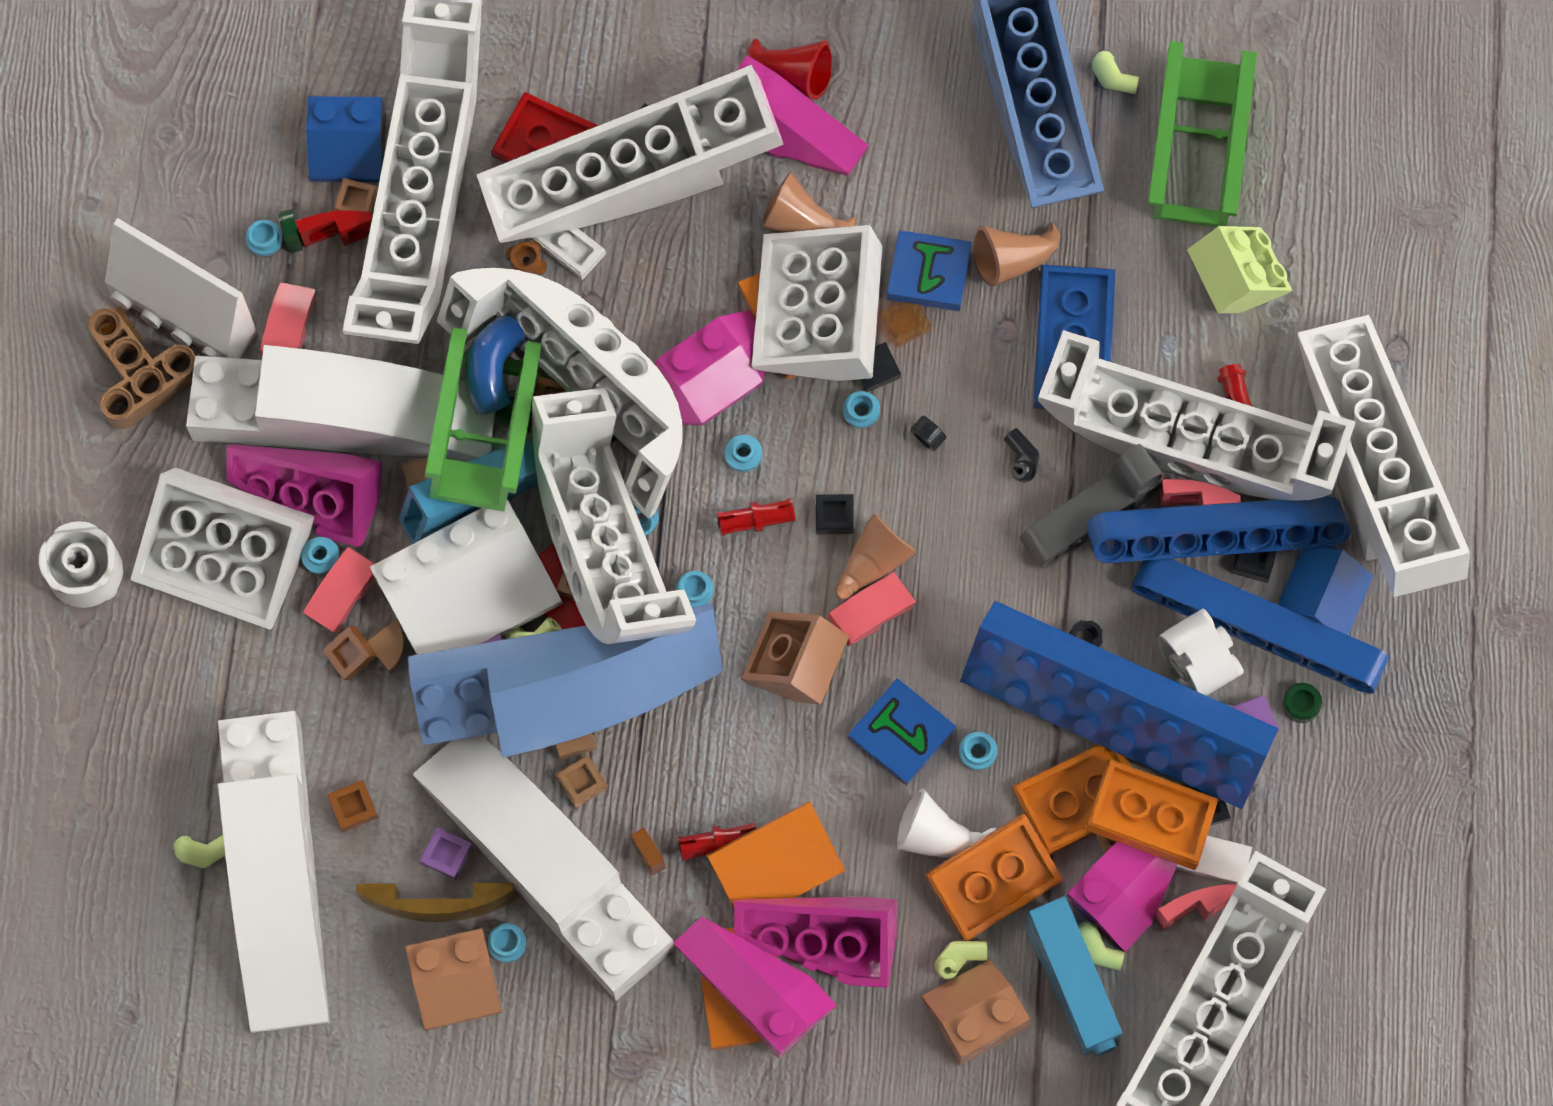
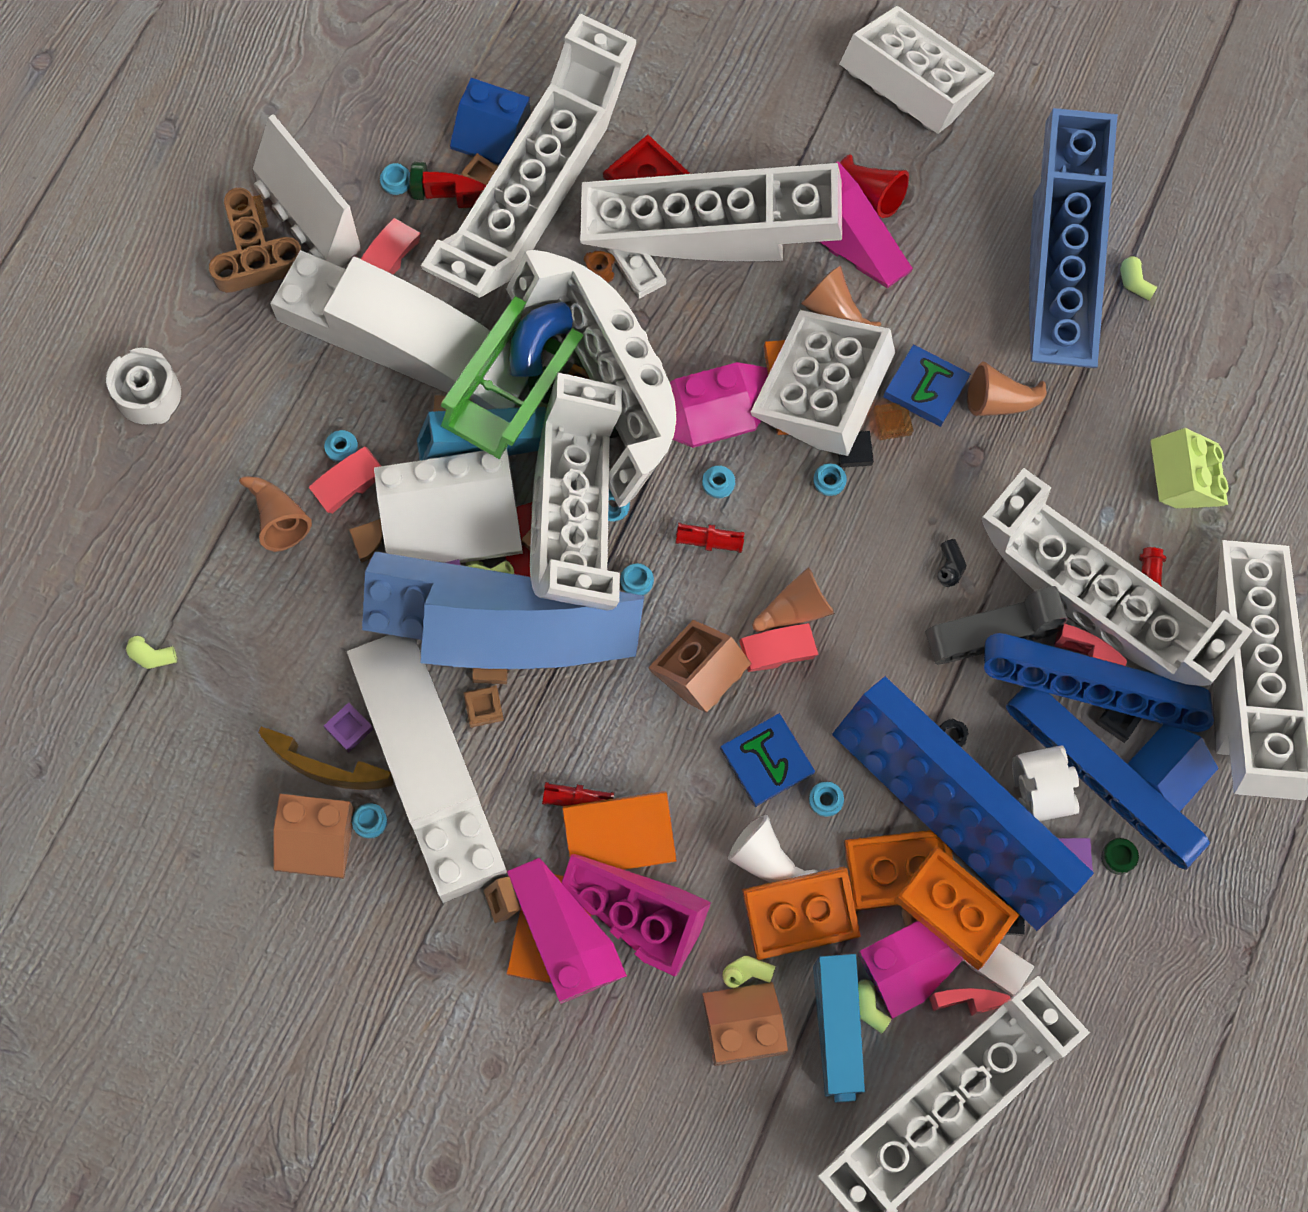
camera: 15 degrees right, 0 degrees up
(221, 547) = (263, 410): white slope -> none
(272, 871) = (197, 690): white slope -> none
(287, 655) = (274, 508): none -> nougat hat
(331, 486) = (362, 392): dark pink wedge -> none
(349, 652) = (333, 533): dark orange tile -> none
(352, 806) = (287, 660): dark orange tile -> none
(648, 851) = (515, 785): dark orange tile -> none
(678, 974) = (501, 899): none -> medium nougat tile
(834, 514) = (776, 558): black tile -> none
(928, 433) = (878, 517): black axle -> none
(1076, 302) = (1041, 450): blue tile -> none
(1210, 84) = (1209, 311): bright green piece -> none

